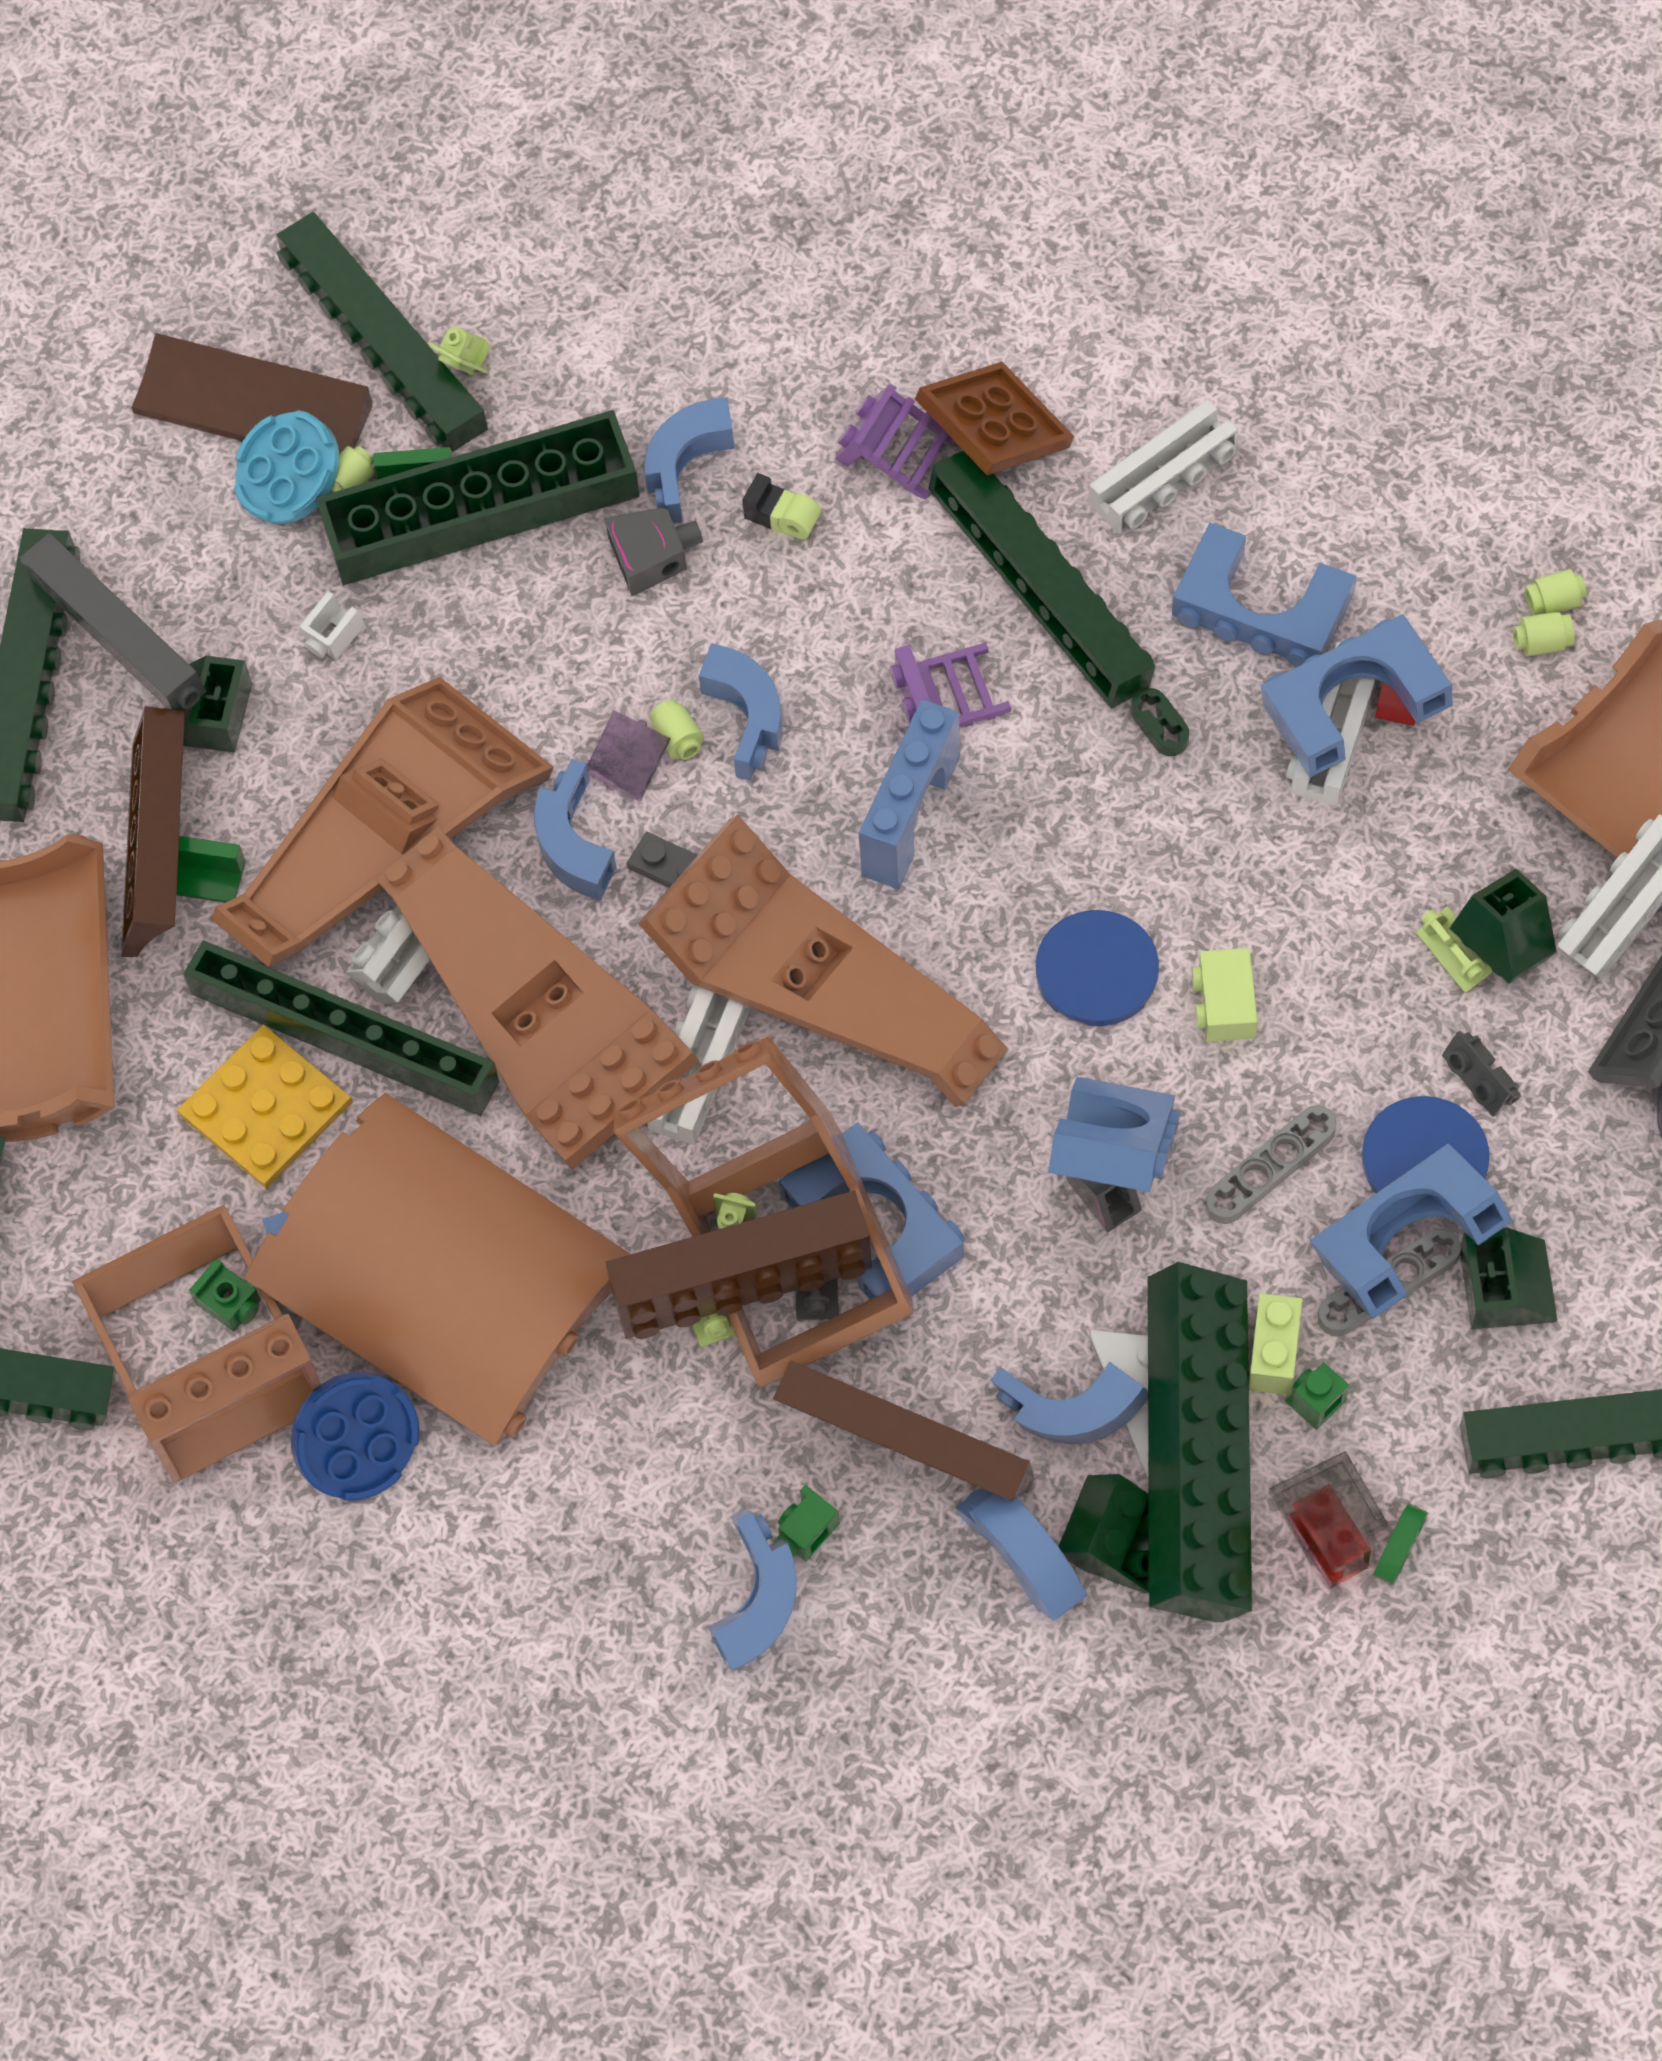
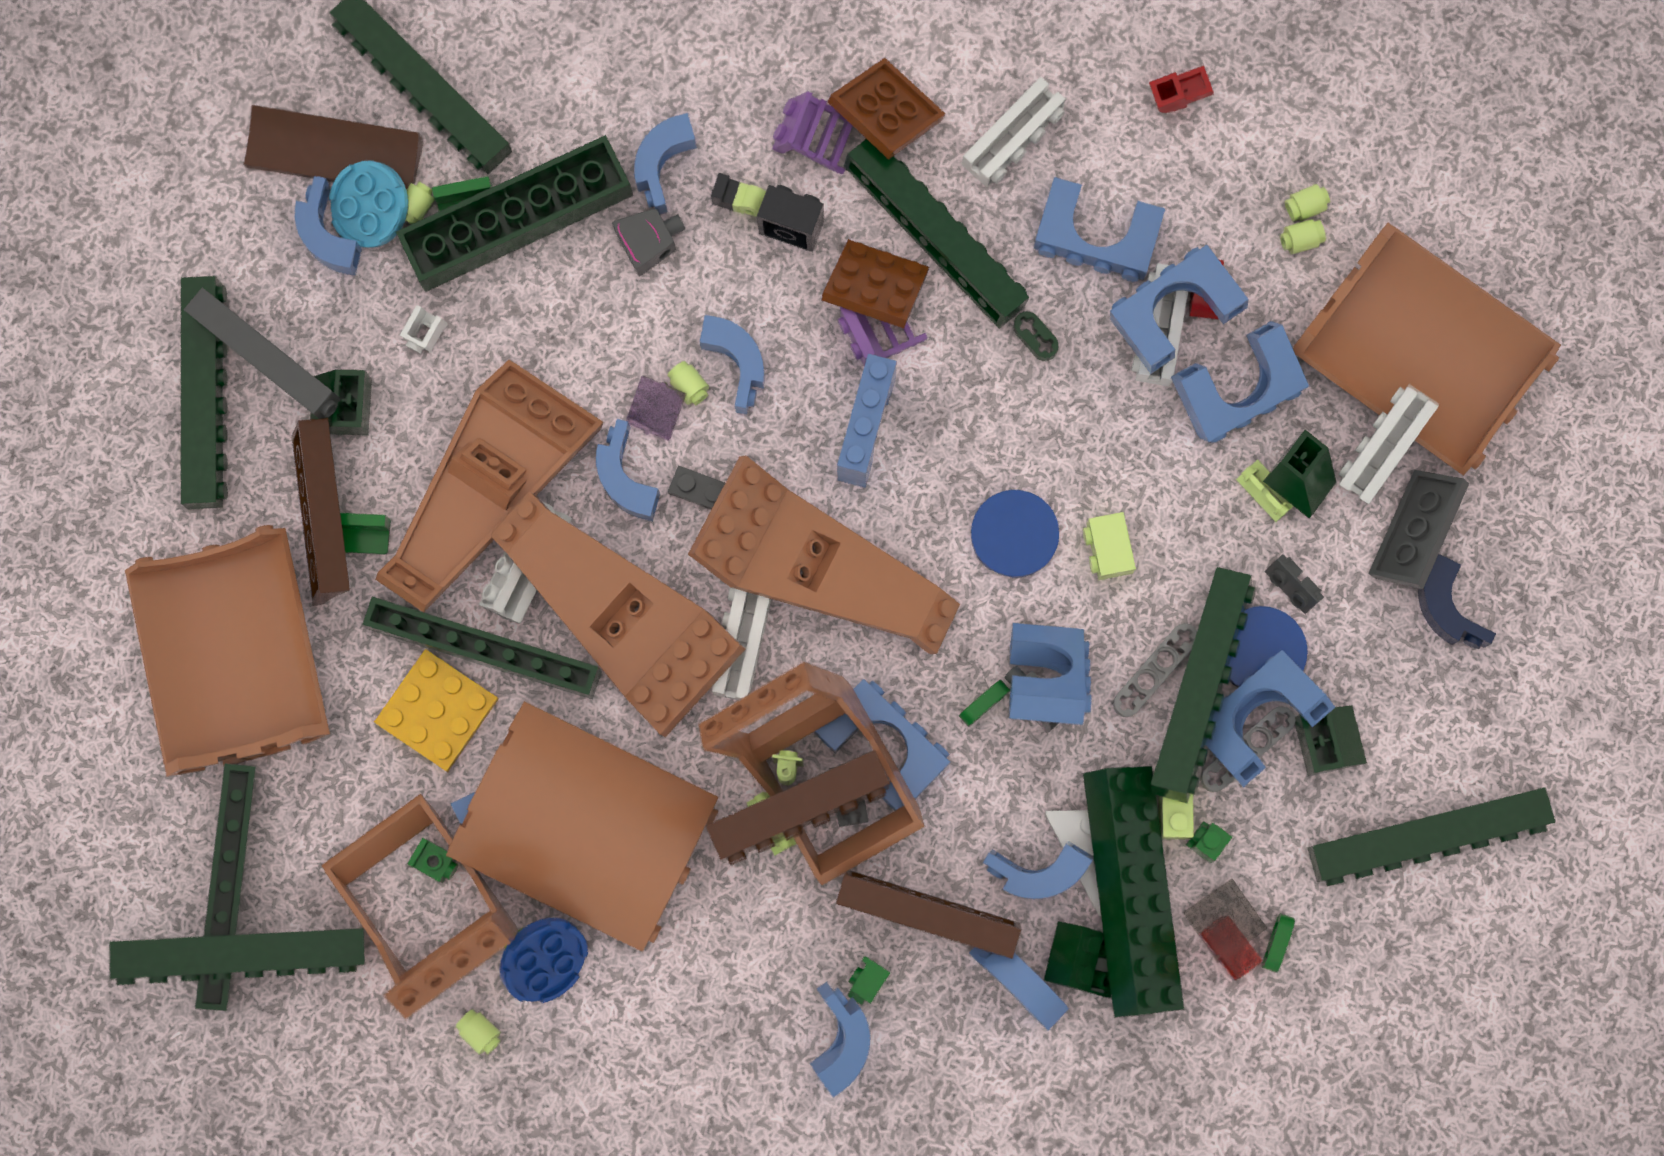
camera: 10 degrees left, 15 degrees up
(225, 519) = (331, 251): none -> medium blue arch
(248, 1529) = (478, 1032): none -> yellowish green brick
(463, 350) = (485, 96): yellowish green hinge -> none
(845, 536) = (791, 217): none -> black brick
(948, 628) = (875, 283): none -> dark orange plate
(1020, 1179) = (984, 703): none -> green beam
(1330, 1180) = (1202, 684): none -> dark green brick
(1389, 439) = (1176, 91): none -> red brick
(1489, 805) = (1279, 380): none -> medium blue arch

